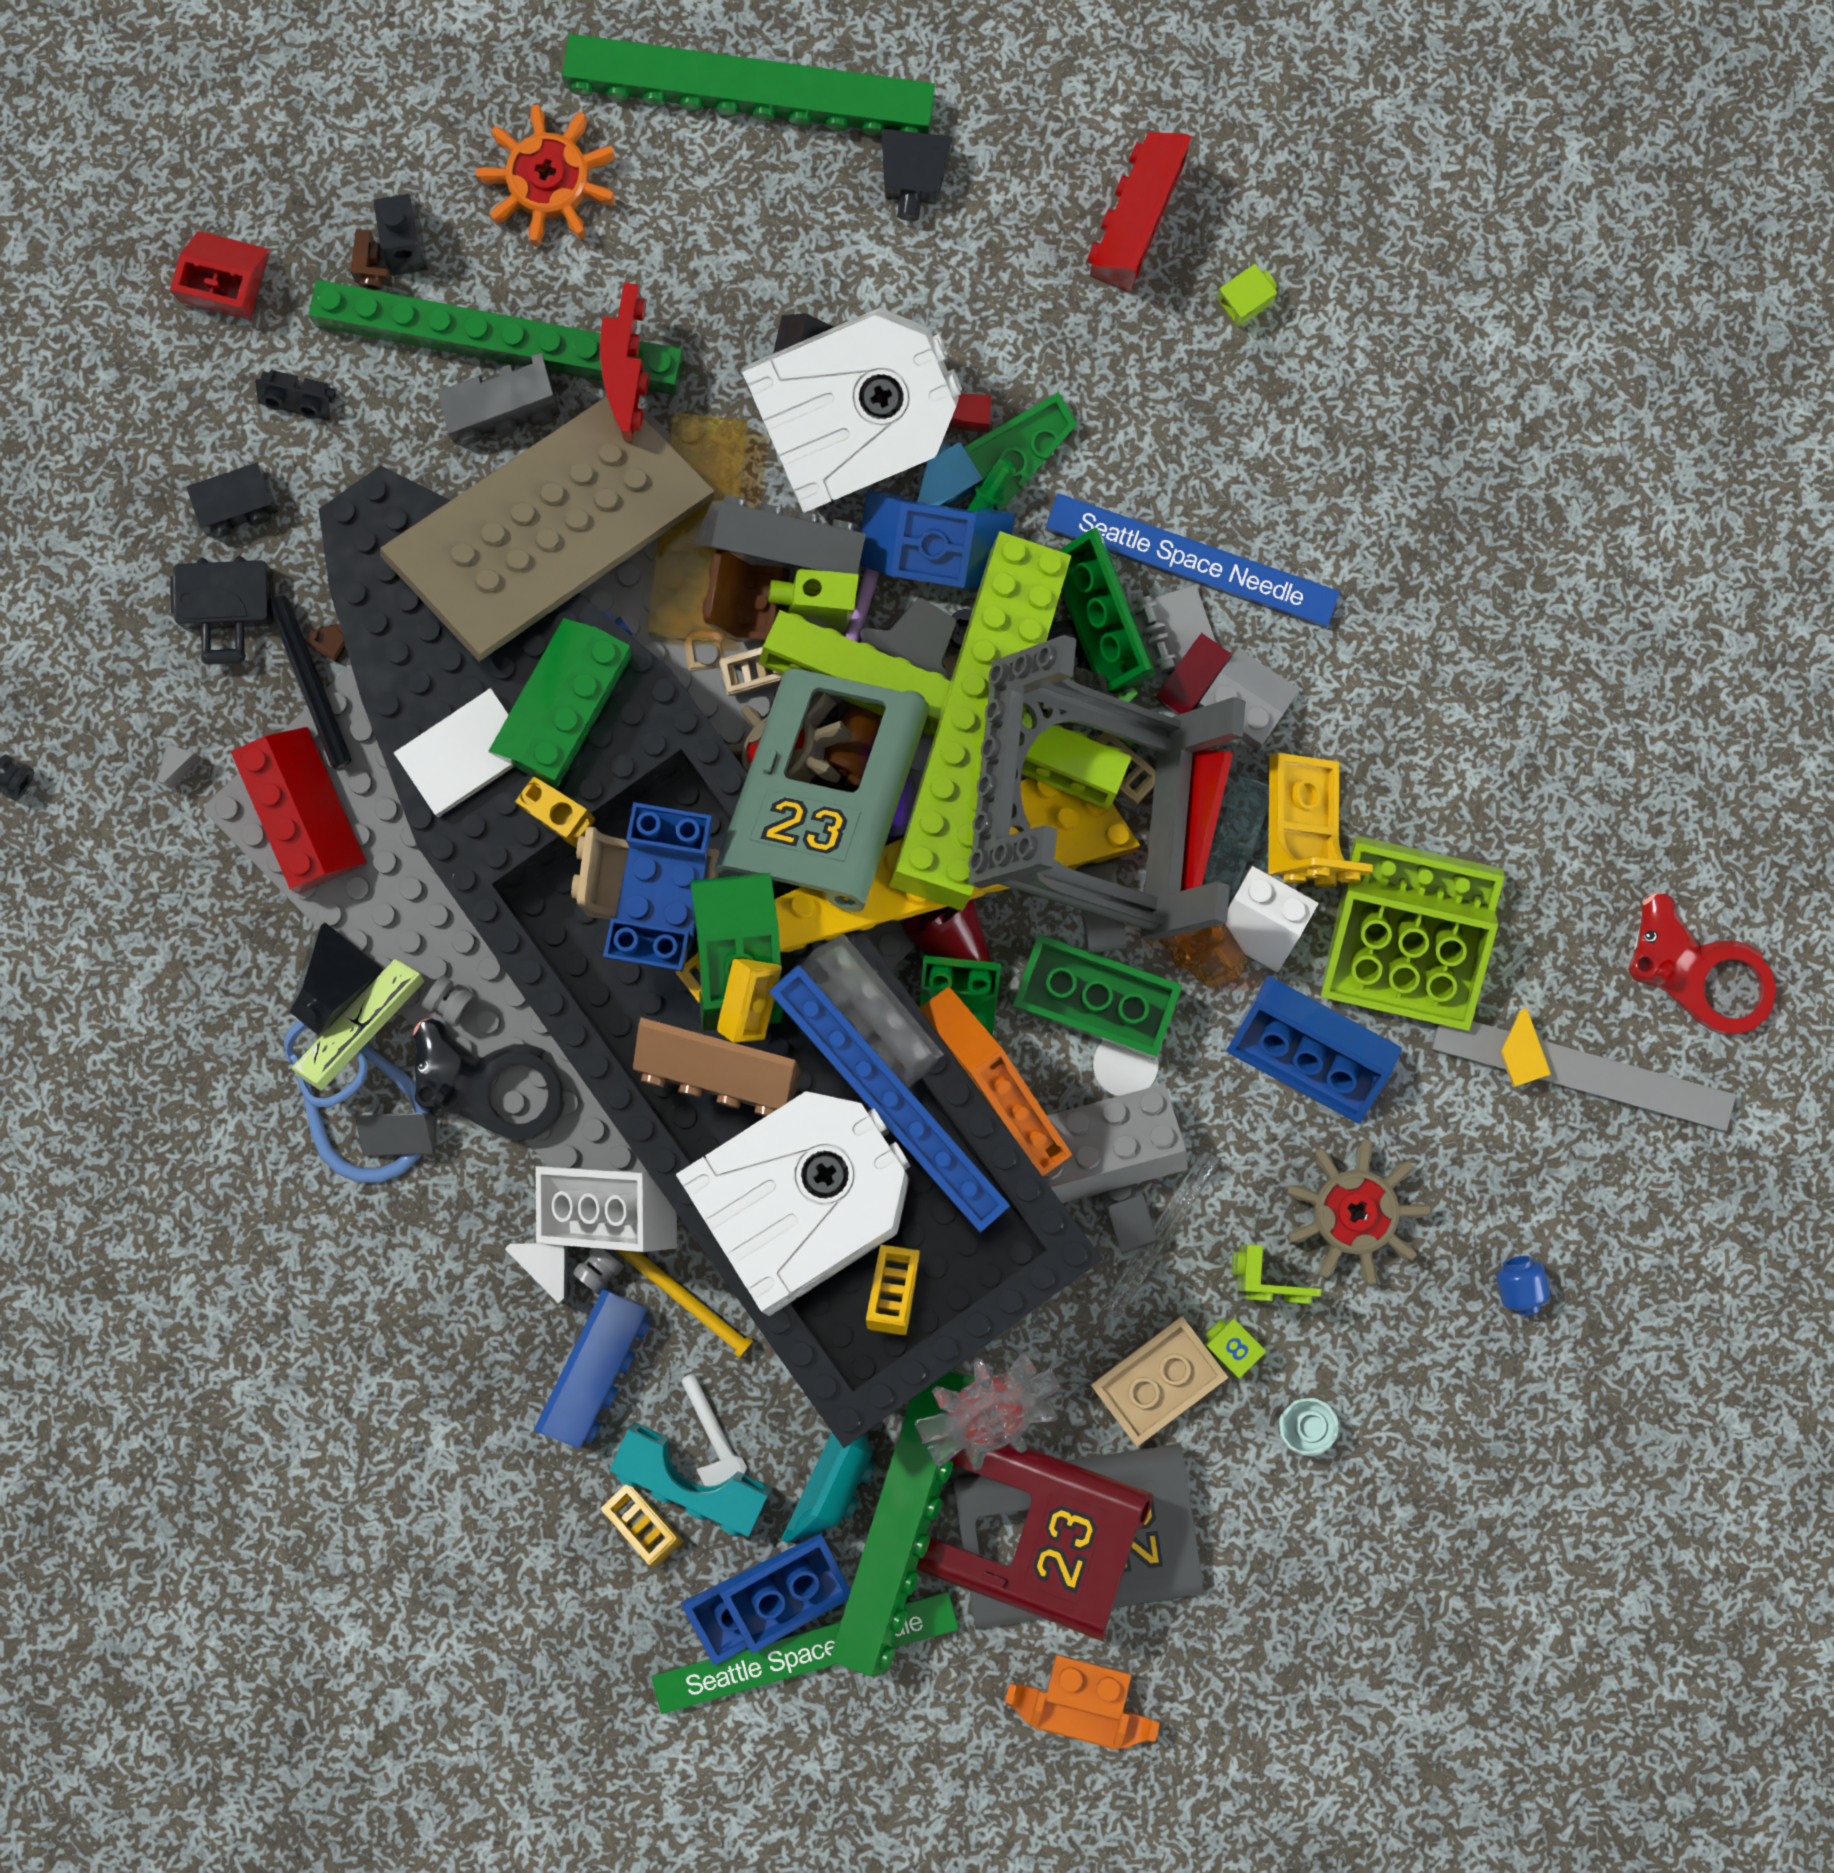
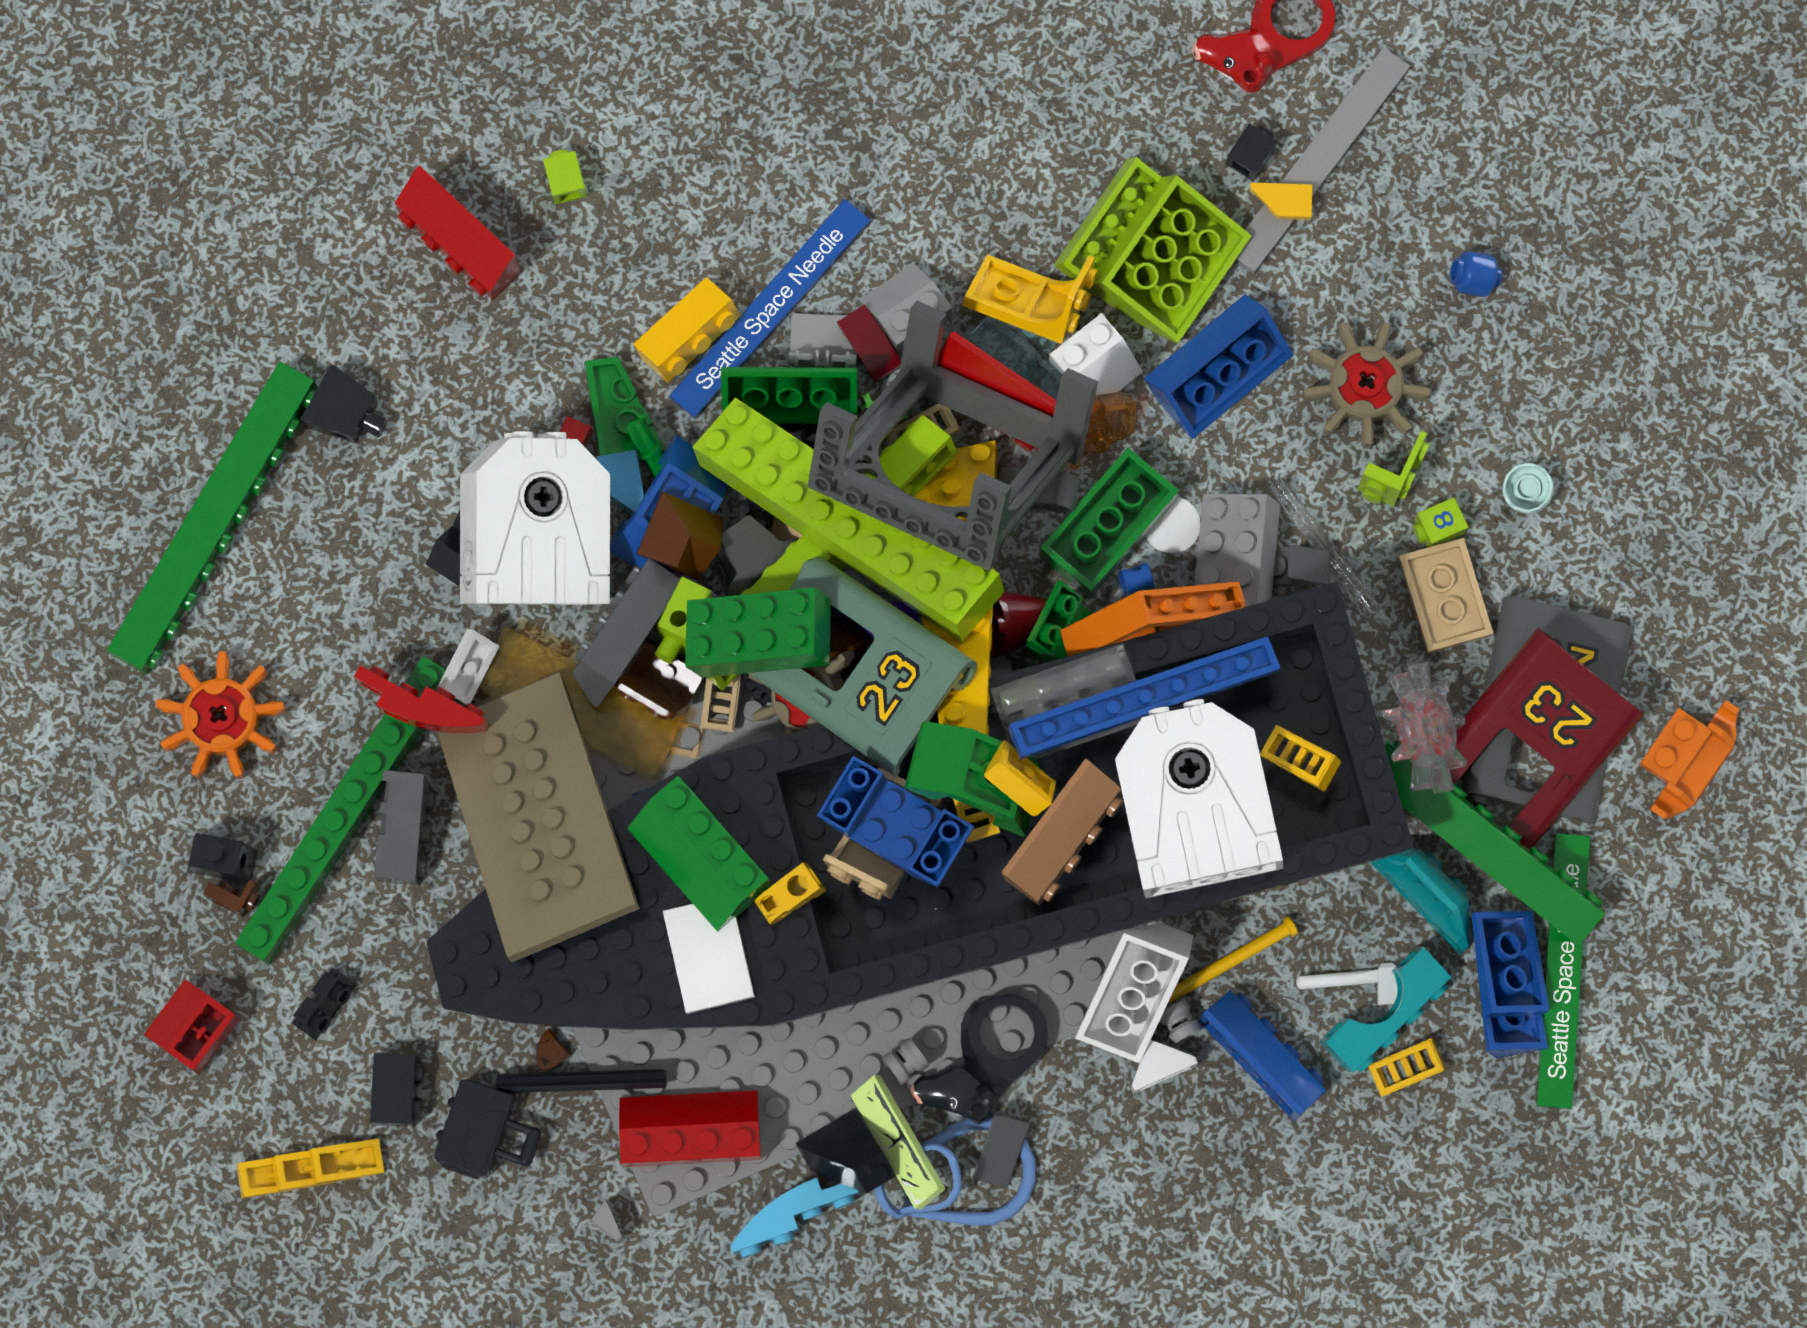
camera: 70 degrees left, 5 degrees down
(124, 448) = (310, 1168): none -> yellow slope
(244, 936) = (777, 1219): none -> medium azure slope
(686, 398) = (468, 666): none -> white panel
(818, 671) = (758, 632): none -> green brick
(904, 558) = (681, 536): none -> reddish brown slope
(1040, 1053) = (1135, 580): none -> blue leg
(1132, 482) = (687, 330): none -> yellow brick
(1563, 997) = (1251, 151): none -> black brick

